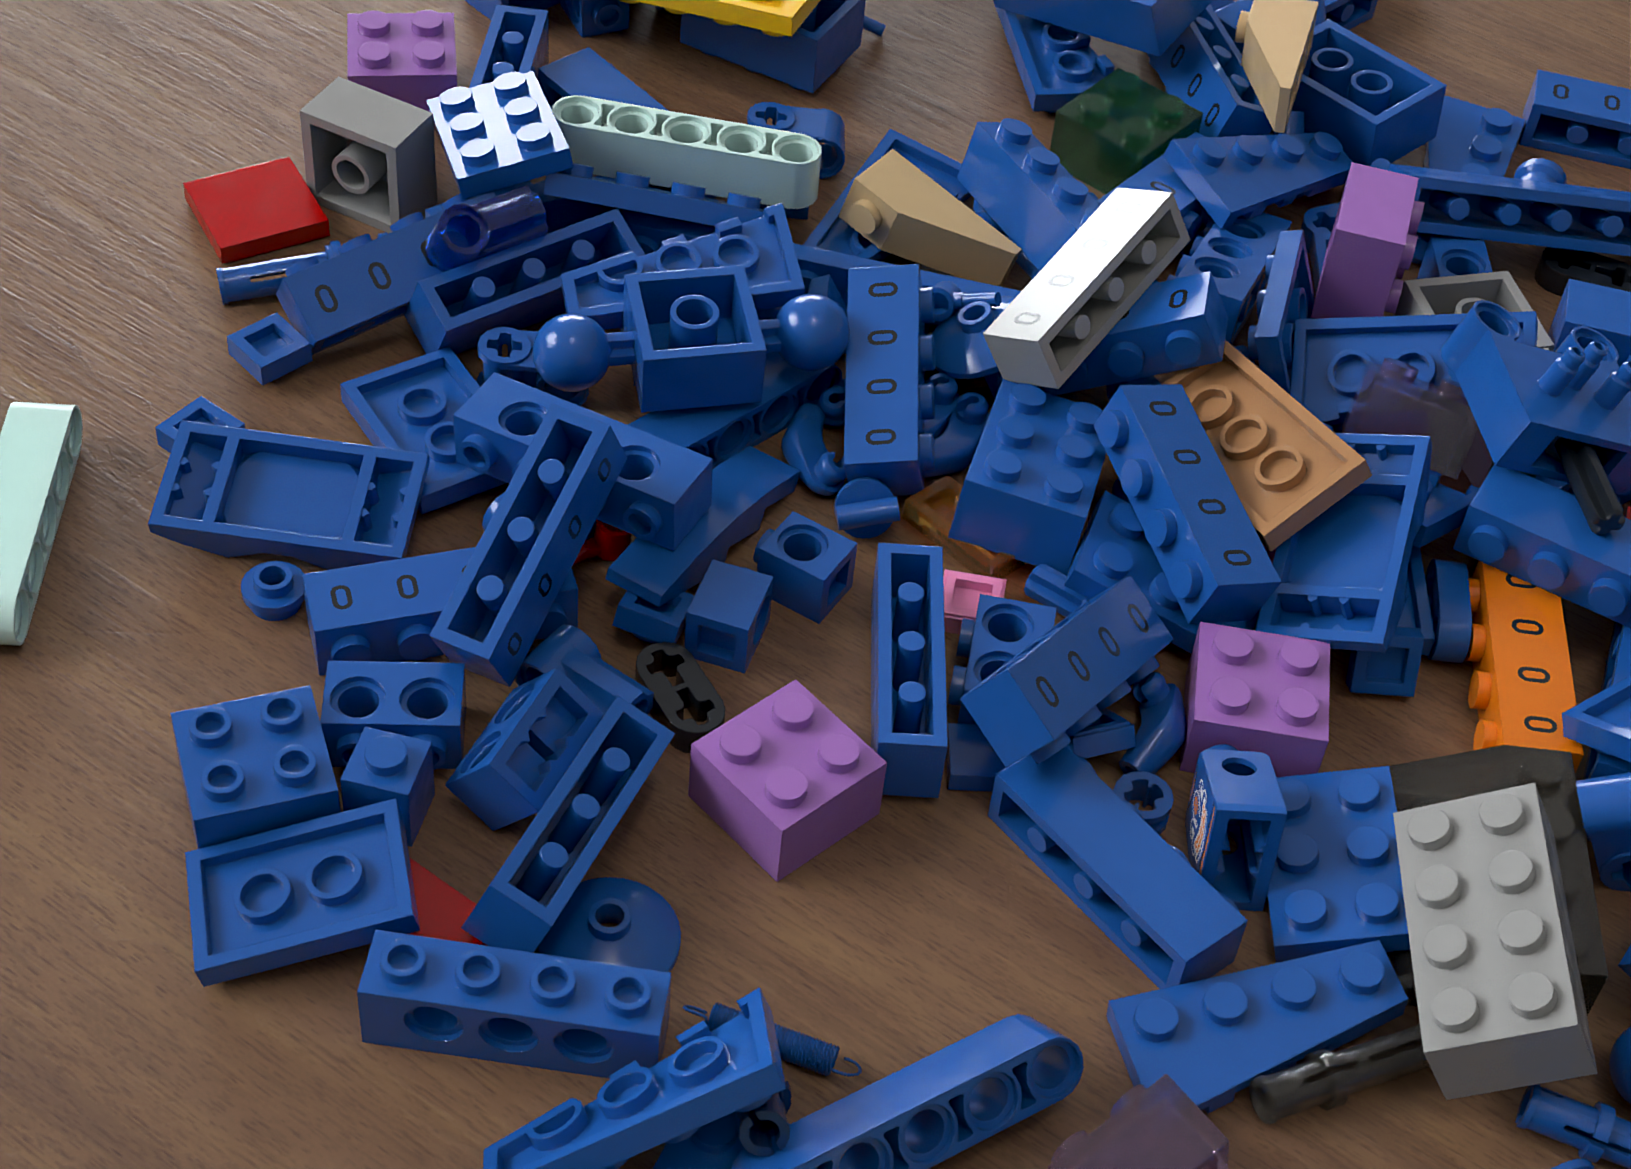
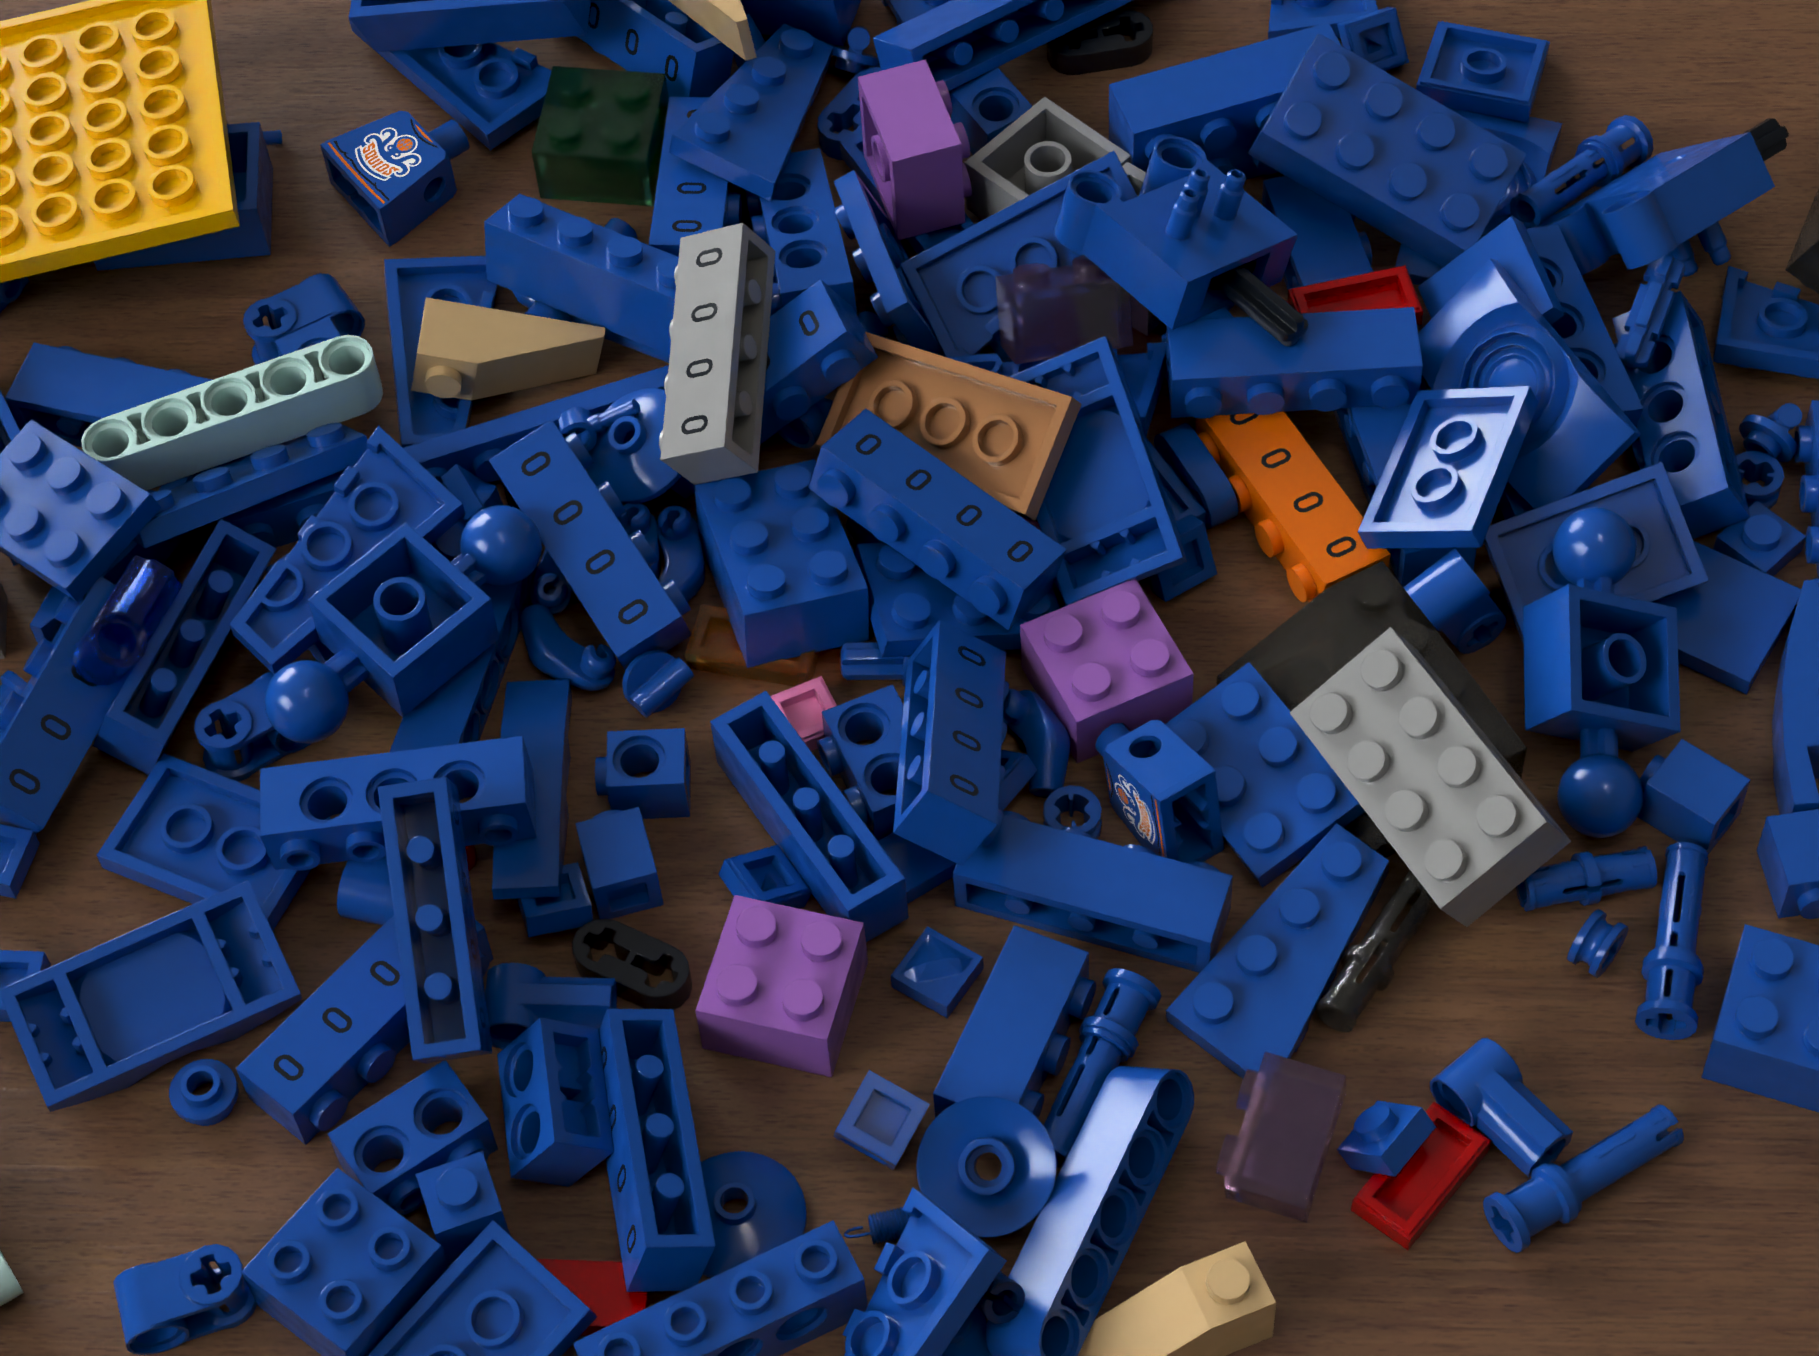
camera: 25 degrees left, 10 degrees up
(115, 717) = (180, 1299): none -> blue piece
(782, 926) = (881, 1120): none -> blue brick
(820, 994) = (950, 1157): none -> blue dish
(842, 693) = (765, 877): none -> blue tile
(929, 852) = (937, 972): none -> blue tile
(948, 84) = (395, 171): none -> blue torso
(951, 939) = (1019, 1023): none -> blue brick
(1035, 991) = (1106, 1041): none -> blue pin

